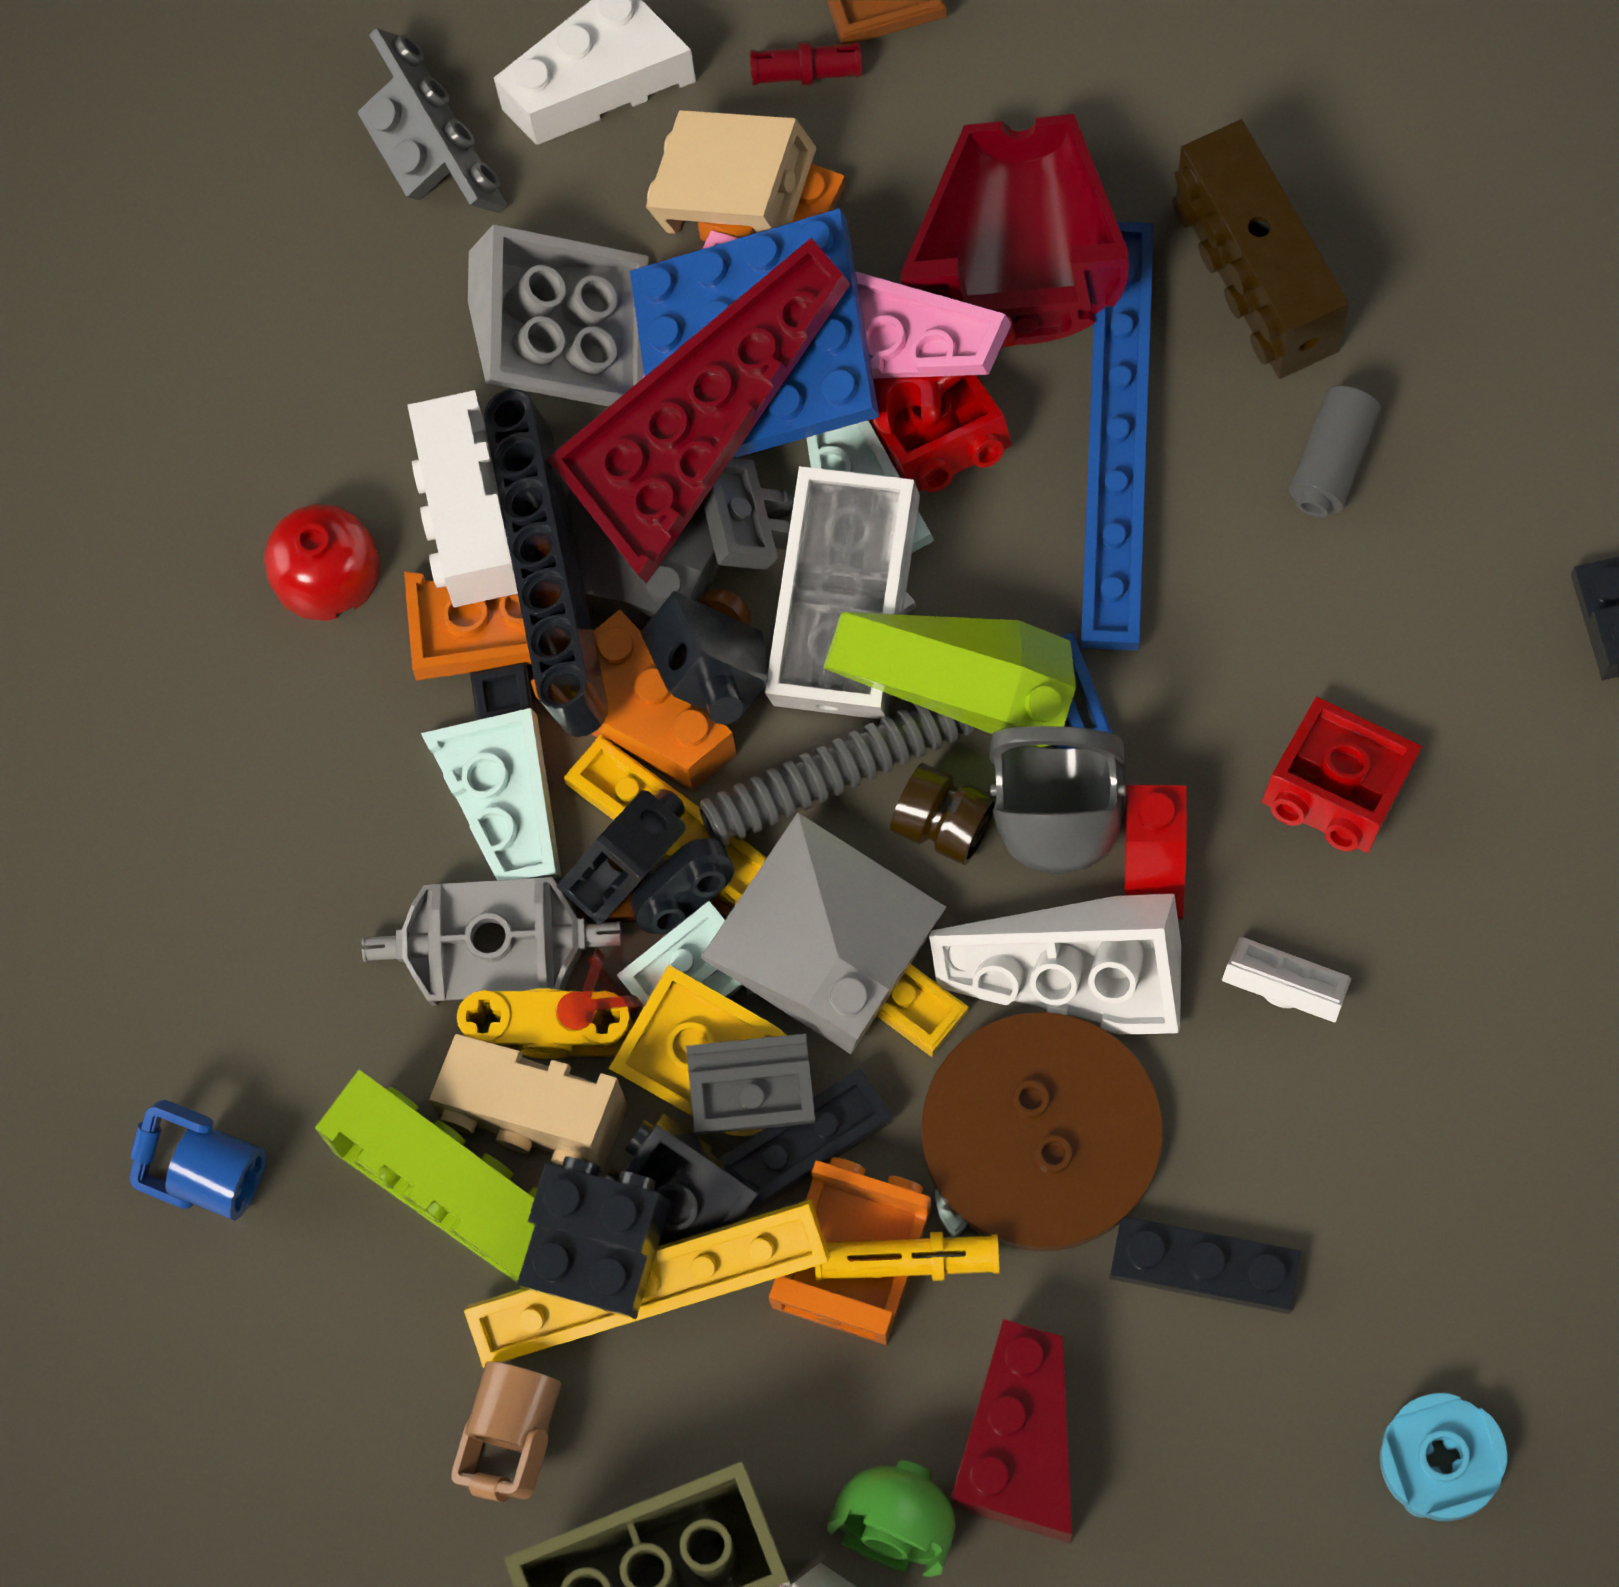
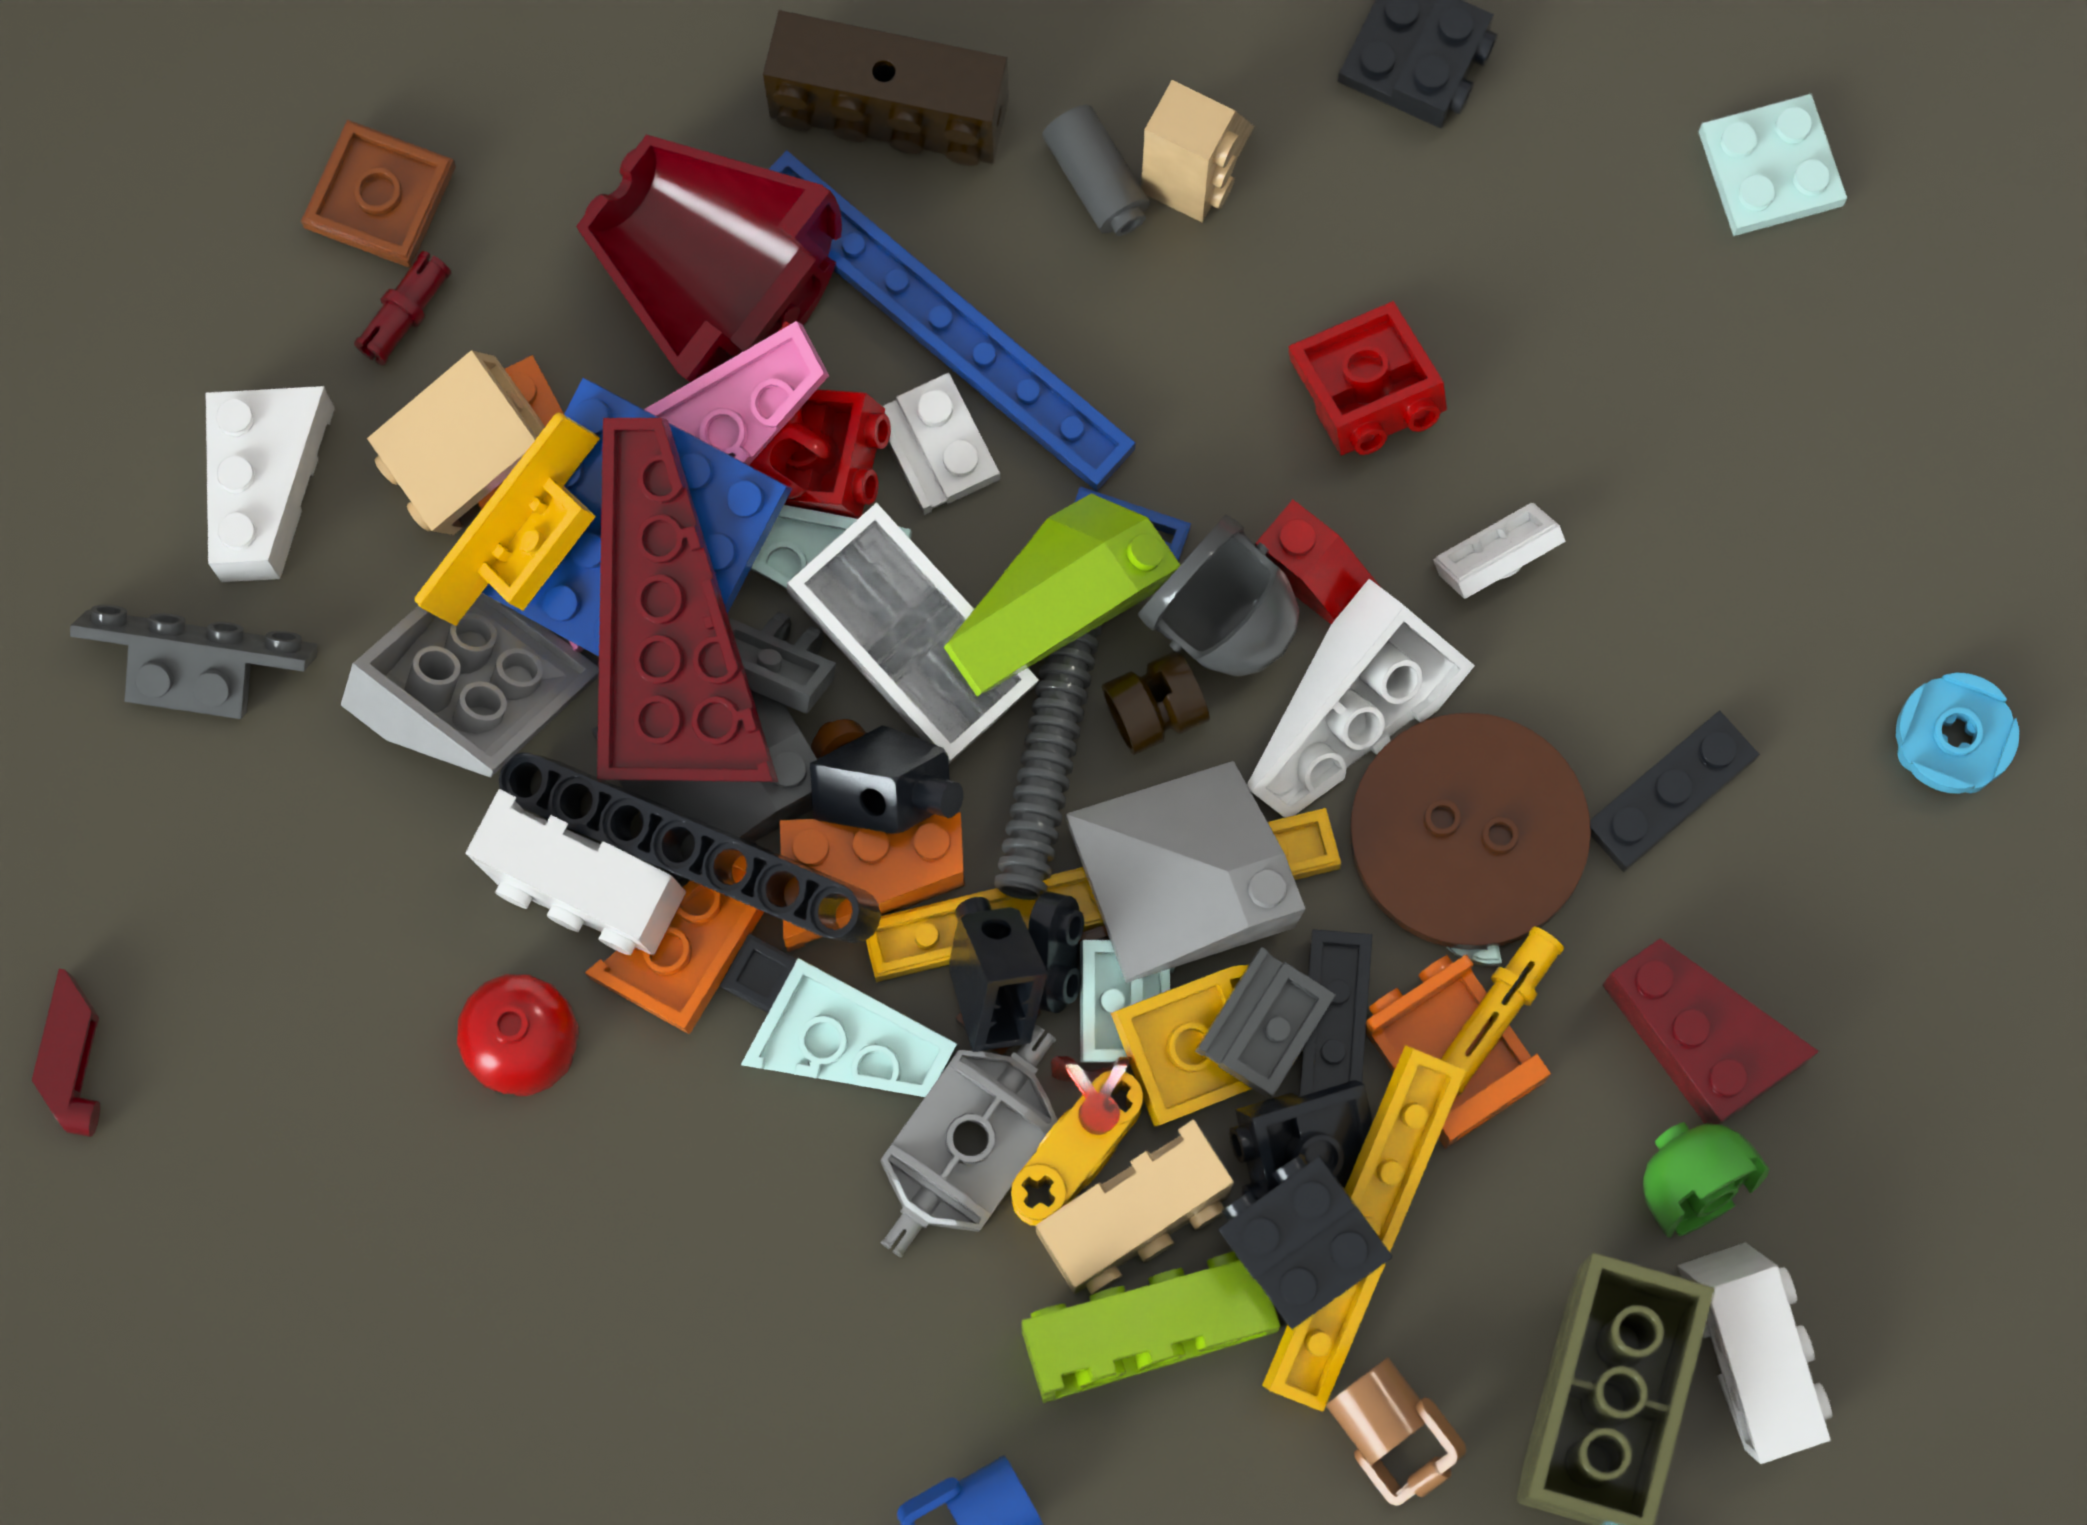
camera: 60 degrees left, 5 degrees up
(67, 276) = (65, 1057): none -> dark red piece
(687, 253) = (520, 529): none -> yellow bracket
(1020, 506) = (938, 444): none -> white plate
(1408, 497) = (1191, 151): none -> tan wedge

